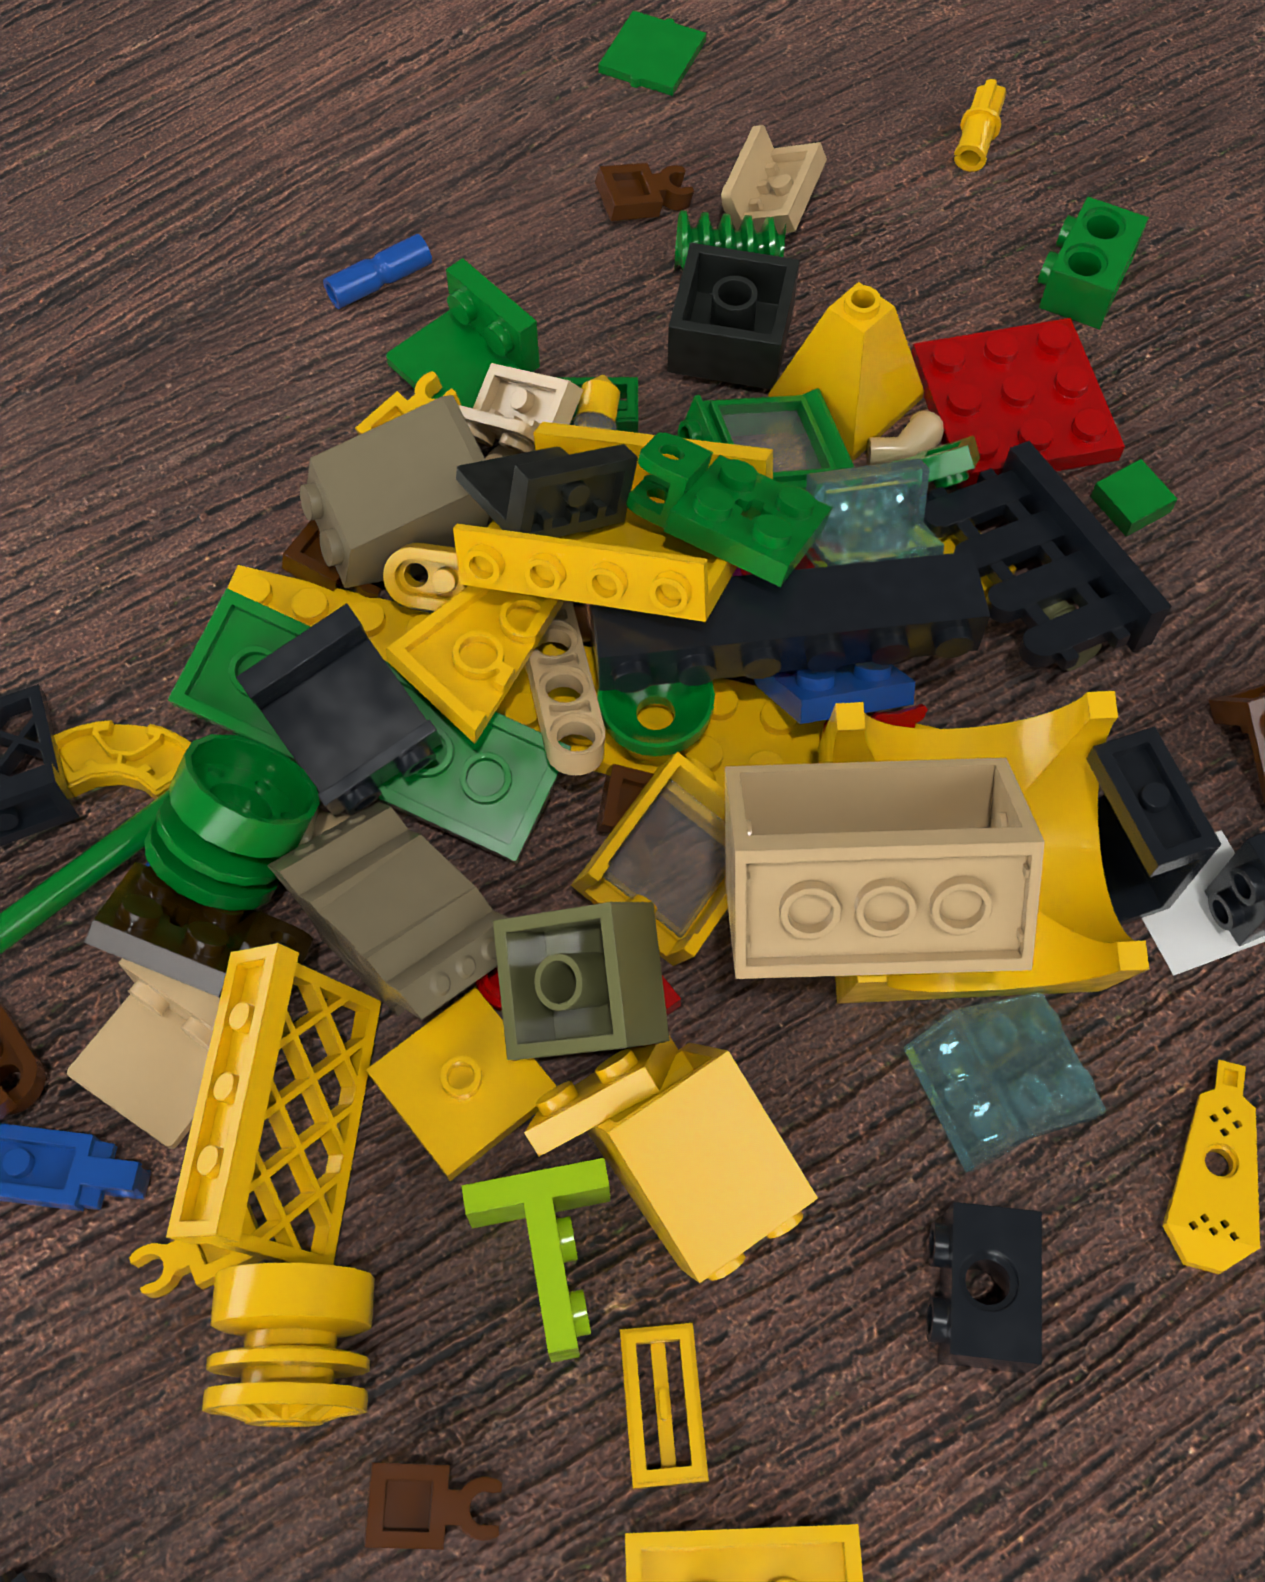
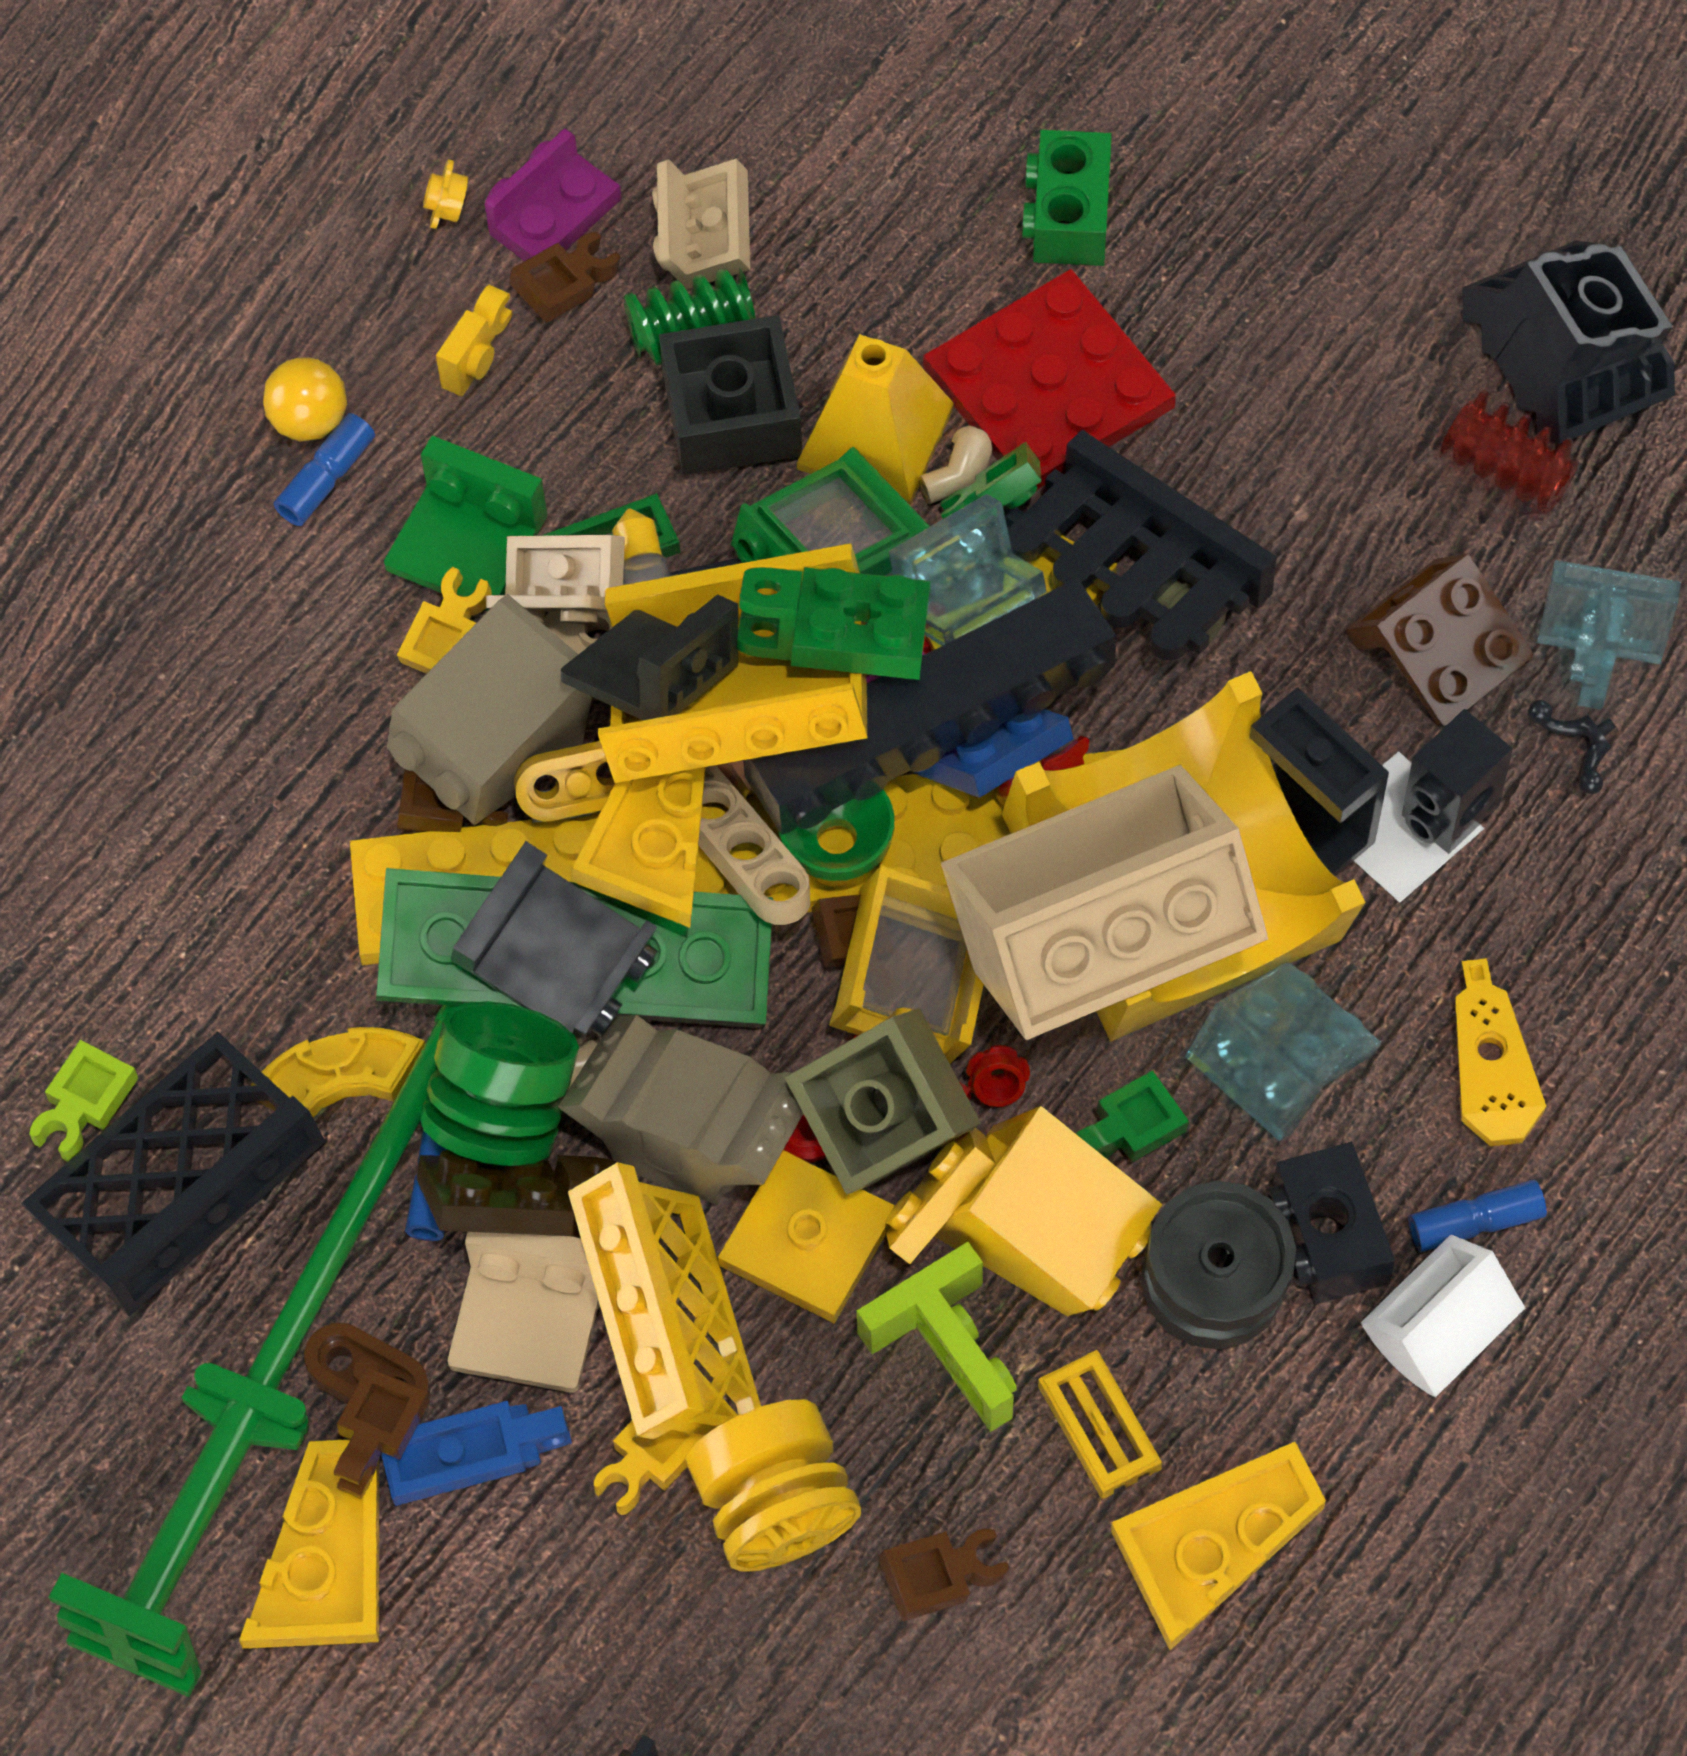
camera: 20 degrees left, 0 degrees up
(385, 209) = (304, 399): none -> yellow piece
(537, 214) = (468, 348): none -> yellow plate
(576, 104) = (445, 195): none -> yellow plate
(652, 53) = (493, 93): green piece -> none
(657, 129) = (549, 199): none -> magenta bracket
(709, 1008) = (1002, 1088): none -> red plate
(829, 1093) = (1136, 1119): none -> green plate
(890, 1268) = (1254, 1259): none -> pearl dark grey wheel
(980, 126) = (892, 67): yellow axle -> none
(1073, 1439) = (1444, 1314): none -> white brick
(1133, 497) = (1203, 445): green tile -> none
(1155, 1340) = (1485, 1213): none -> blue piece

